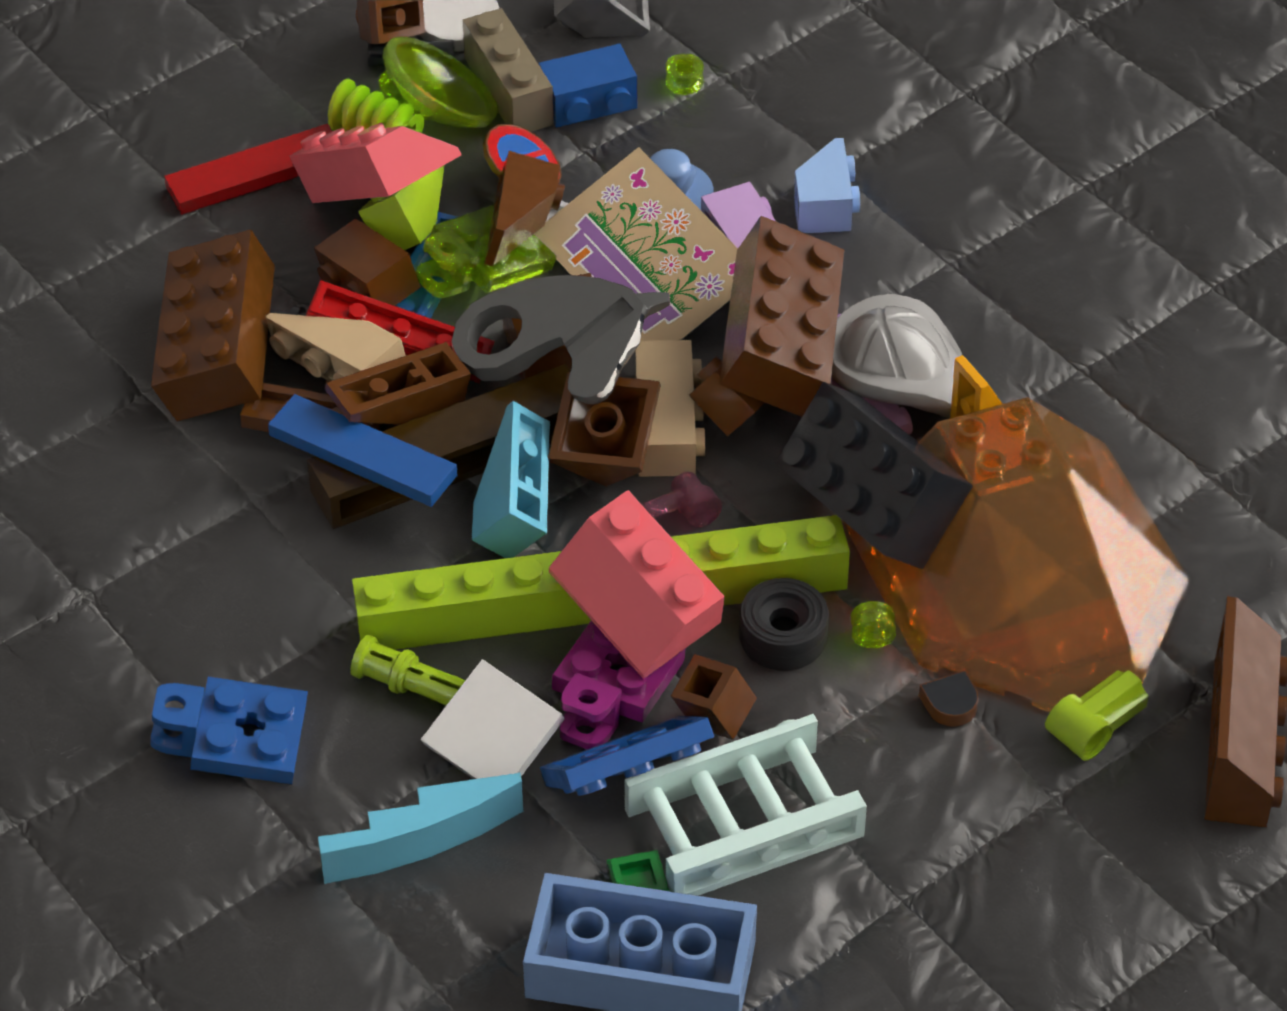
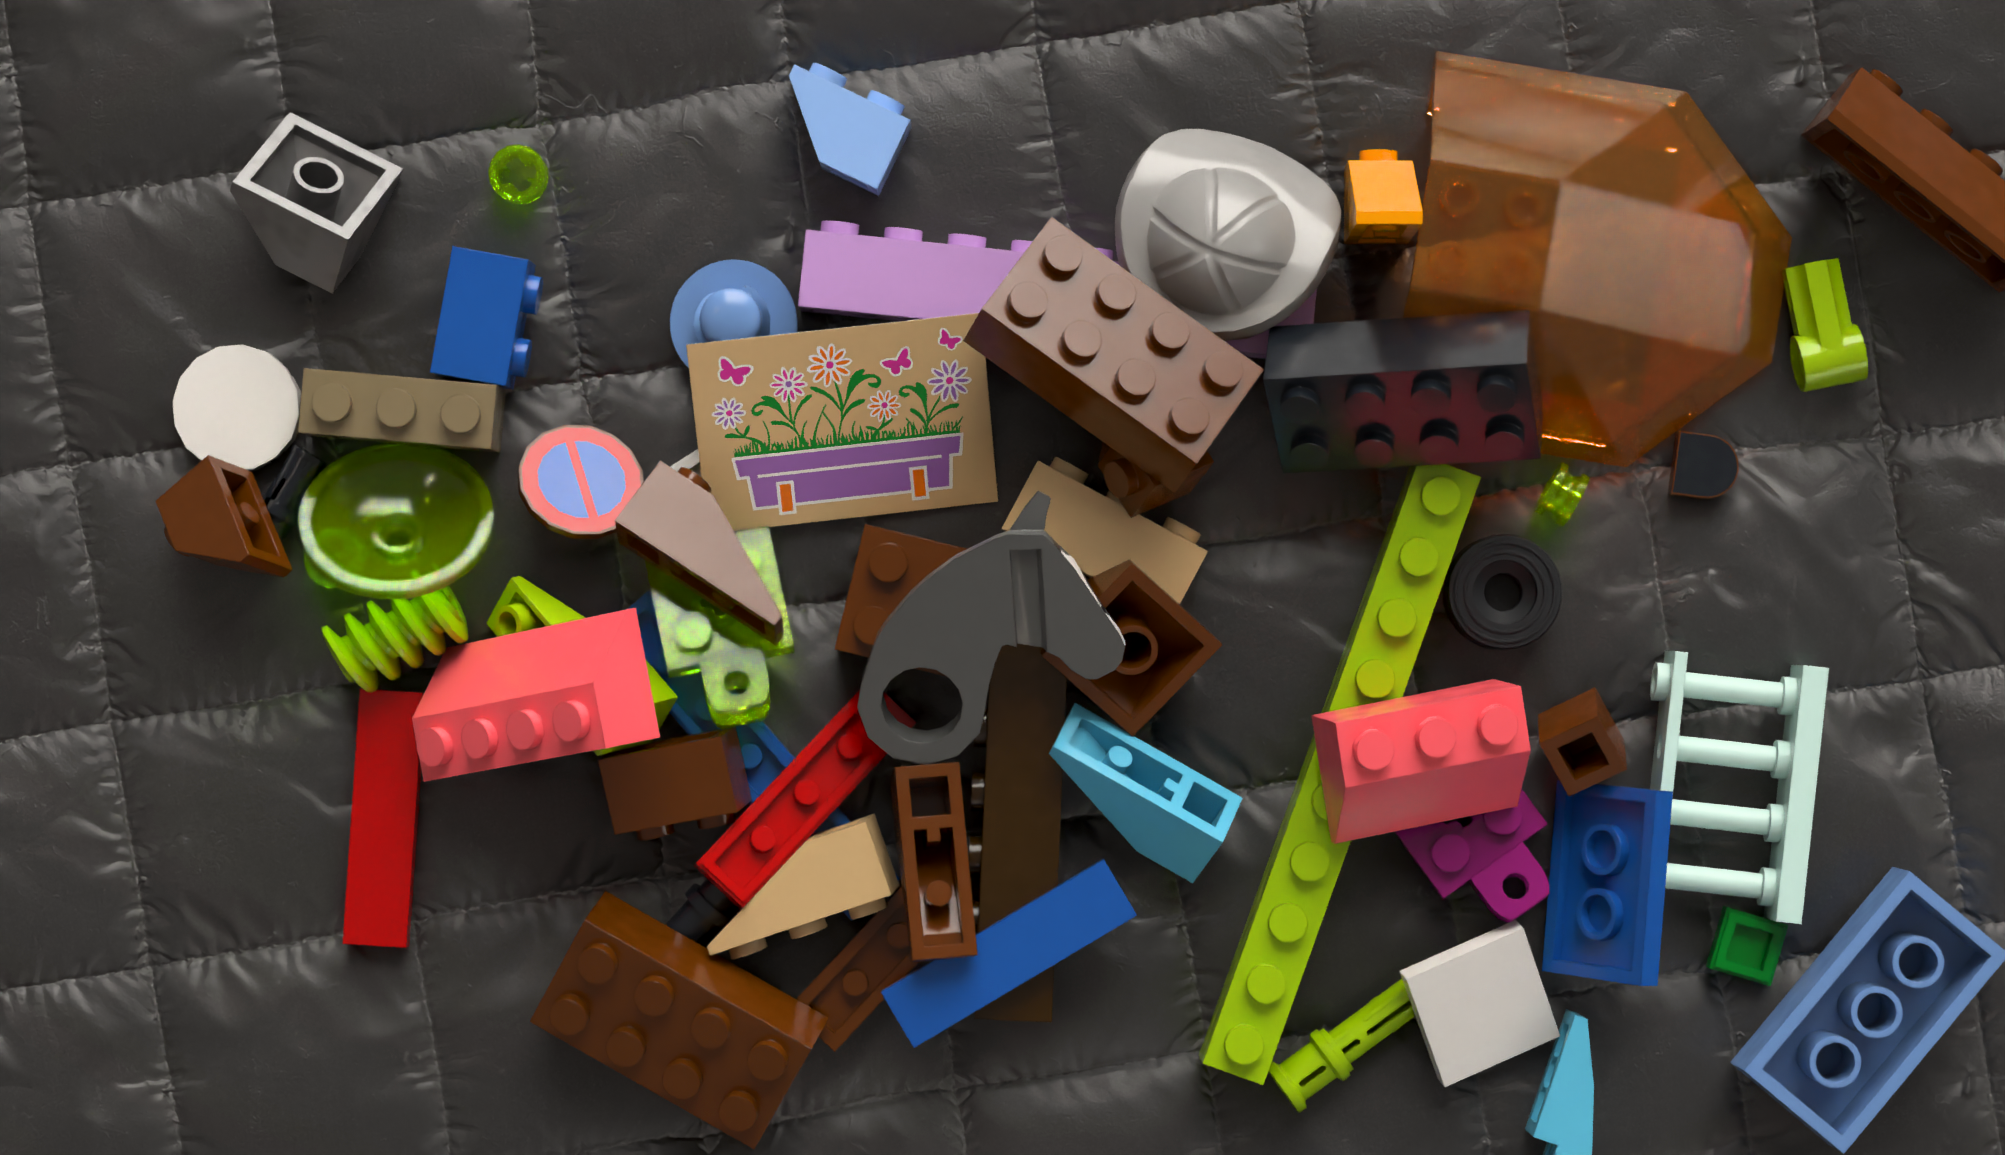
camera: 65 degrees left, 40 degrees up
(688, 497) = (1252, 589): clear pink brick -> none

